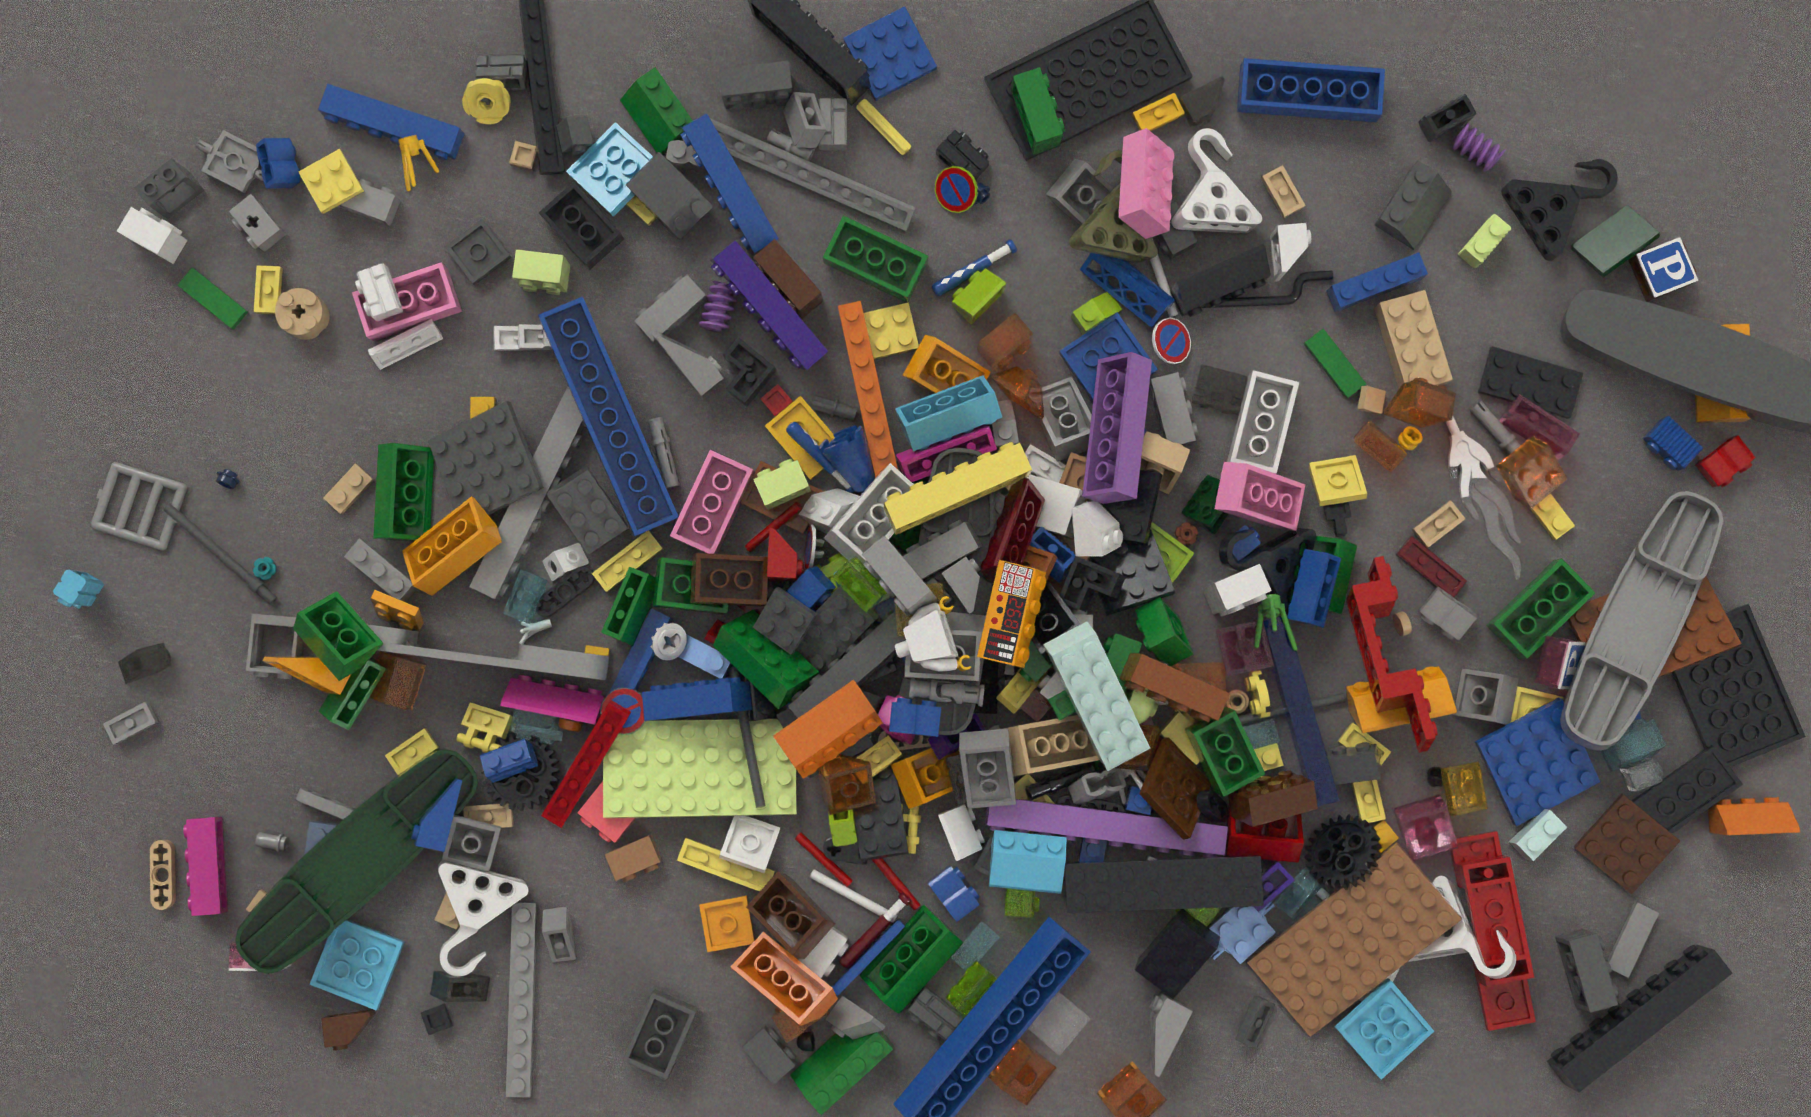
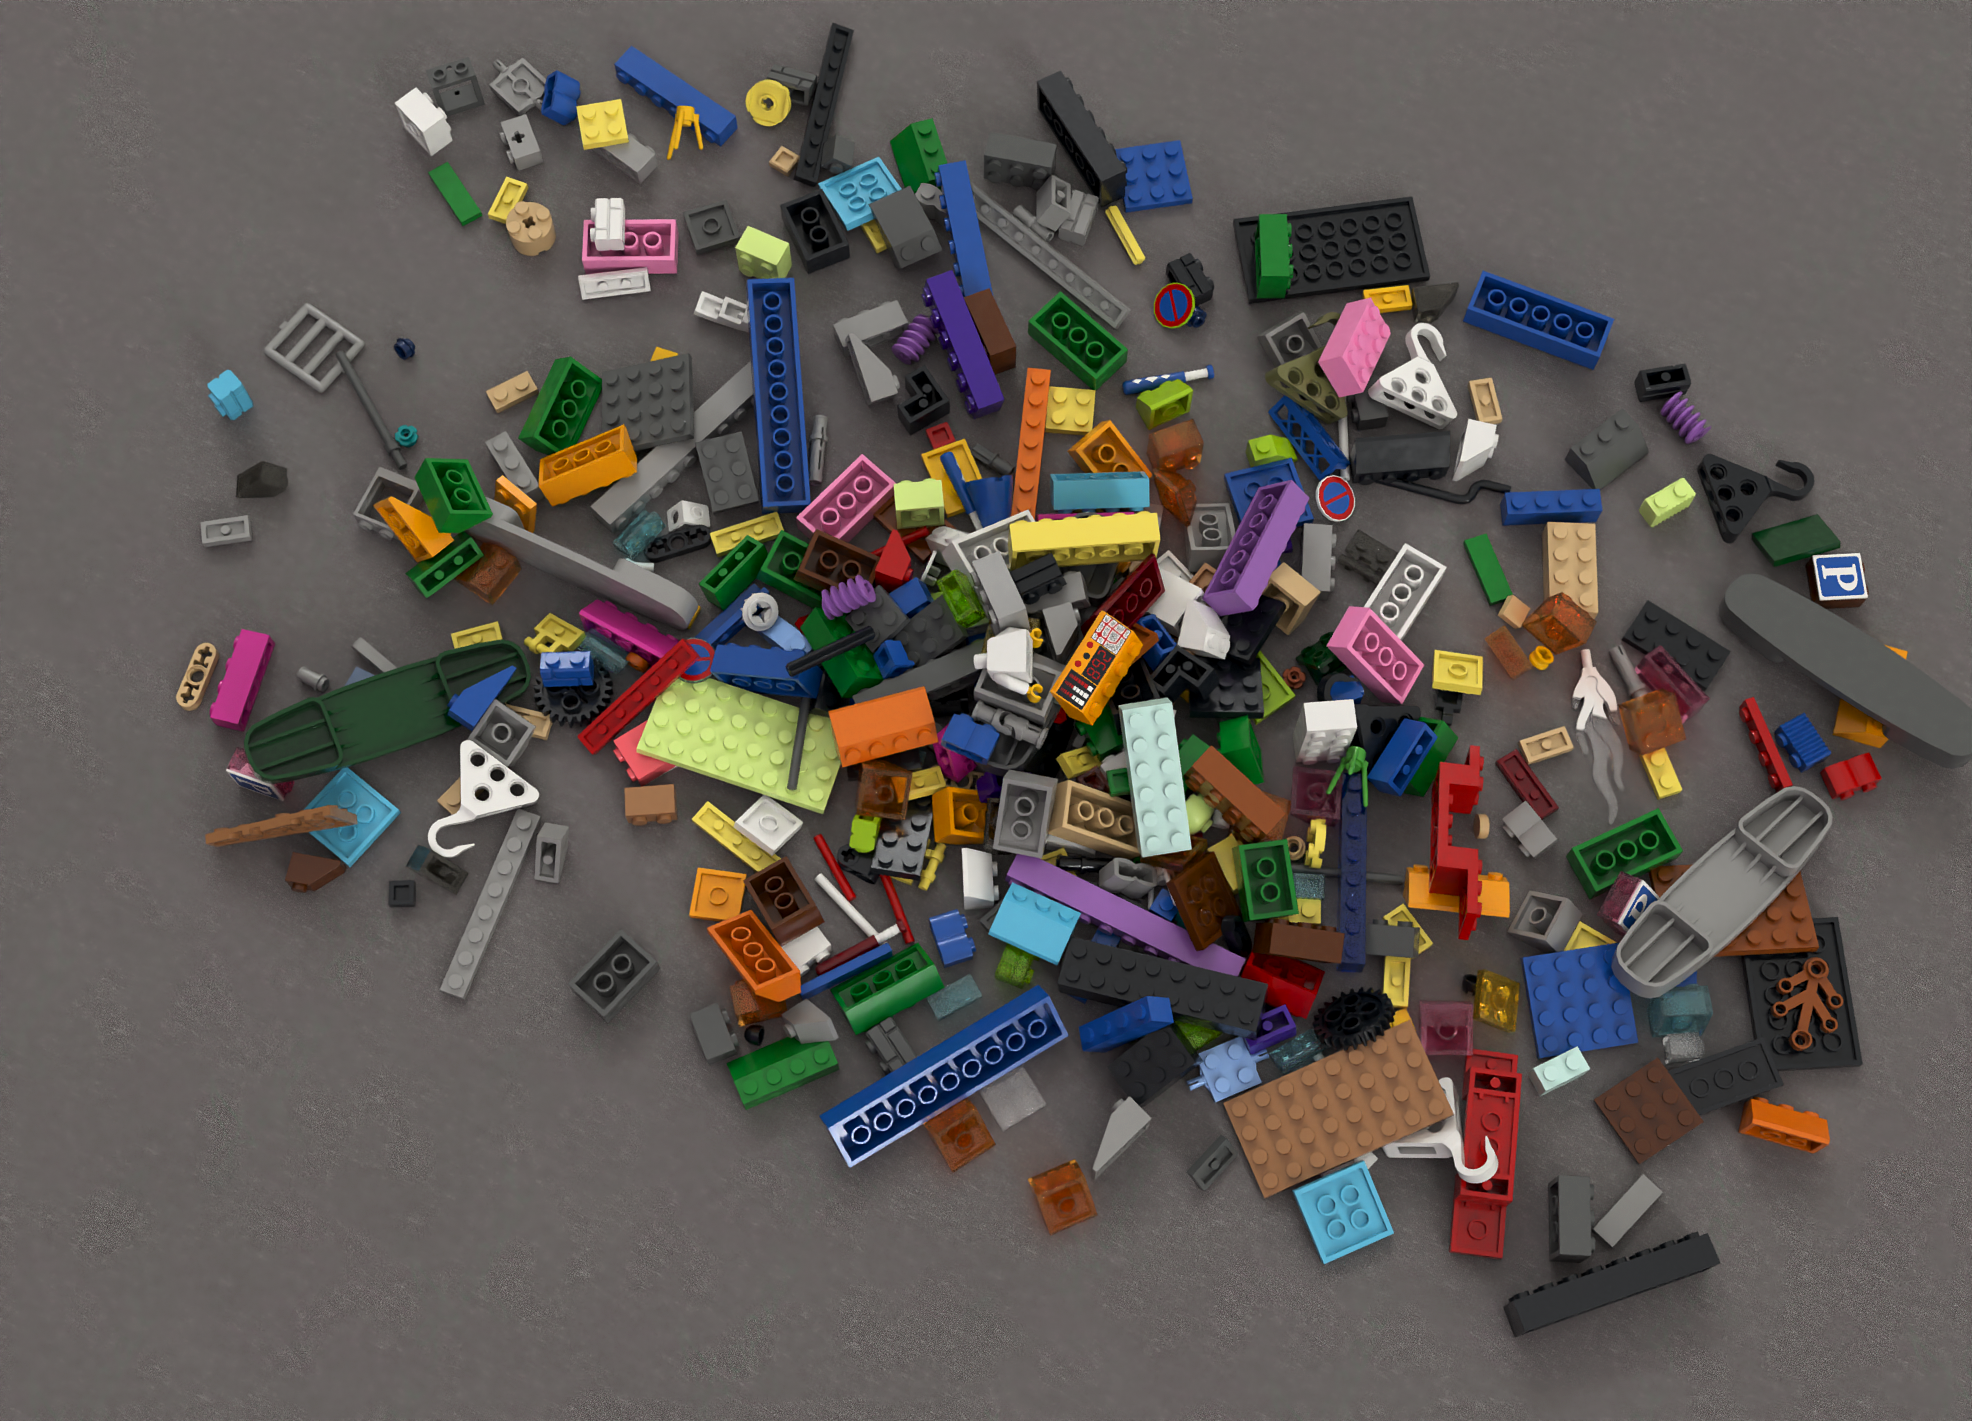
camera: 15 degrees right, 15 degrees down
(308, 999) = (284, 825): none -> medium nougat wing
(750, 612) = (846, 597): none -> medium lavender piece
(753, 673) = (830, 651): none -> black axle
(813, 656) = (892, 659): none -> blue brick
(926, 544) = (1038, 579): none -> black brick
(971, 987) = (937, 1030): clear neon green brick -> none
(1142, 932) = (1126, 1024): none -> blue brick
(1644, 464) = (1768, 753): none -> red plate
(1743, 694) = (1809, 1000): none -> dark orange plant

